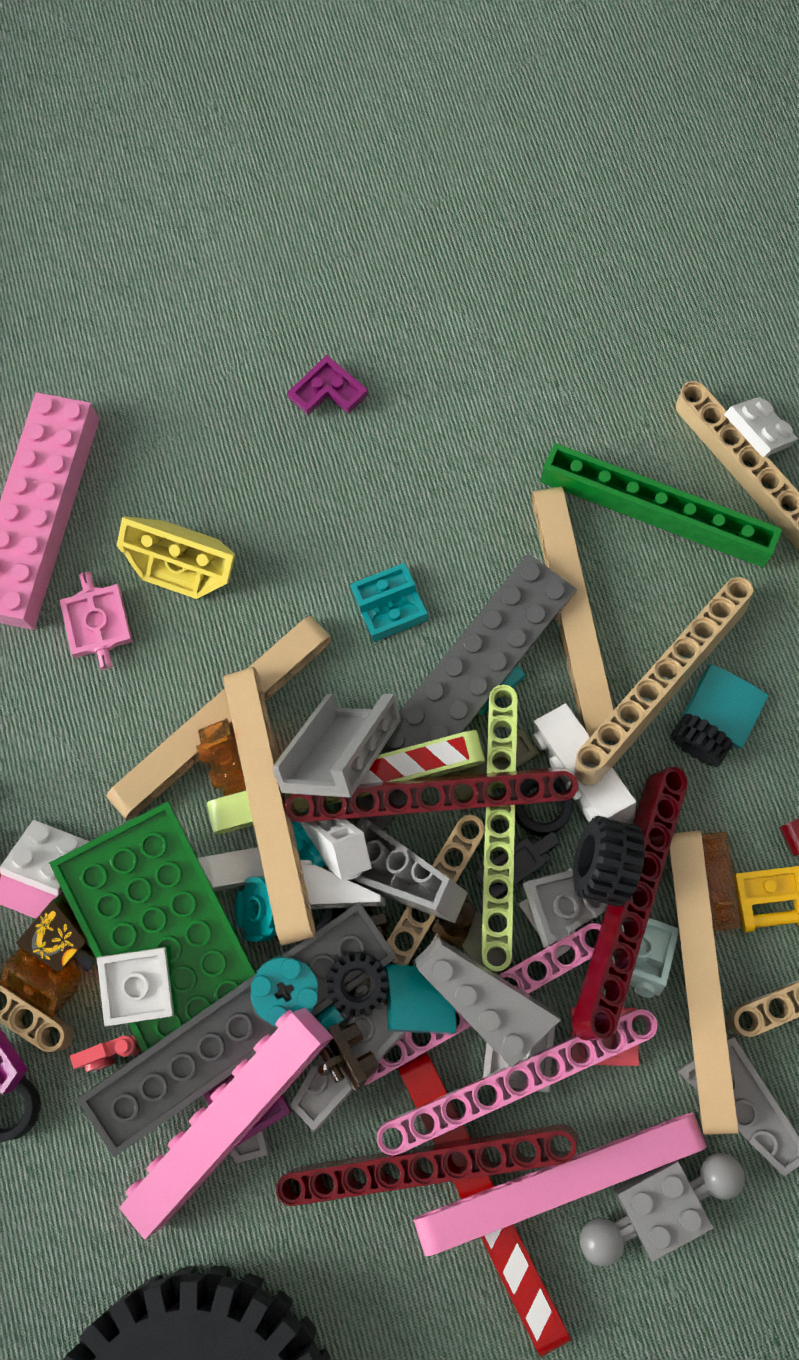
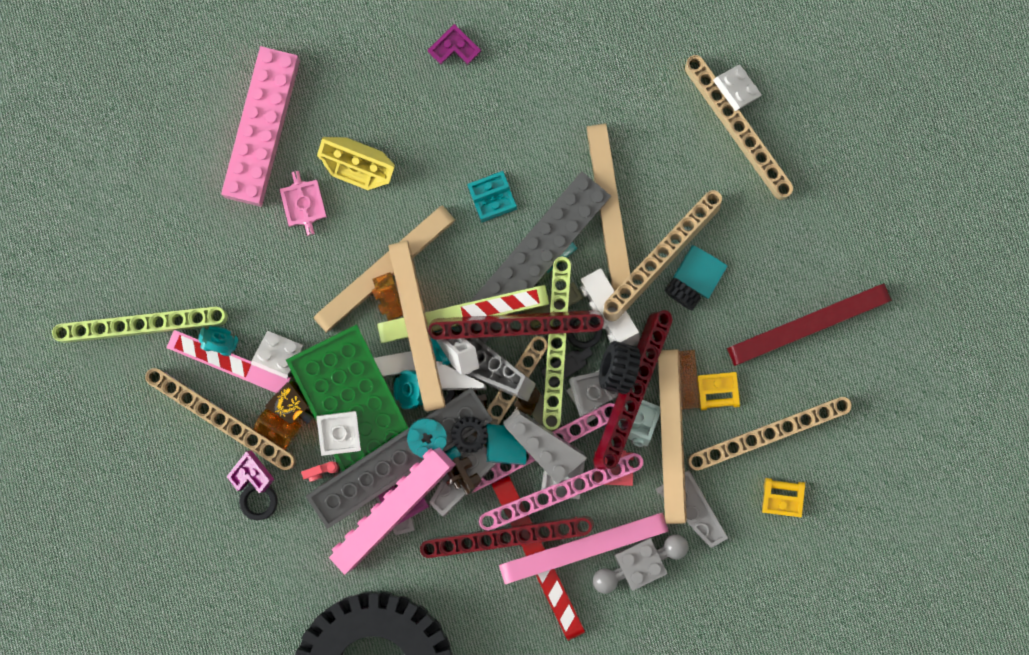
camera: 10 degrees left, 10 degrees up
(336, 748) = (459, 293): light grey panel -> none
(660, 505) = (667, 139): green brick -> none

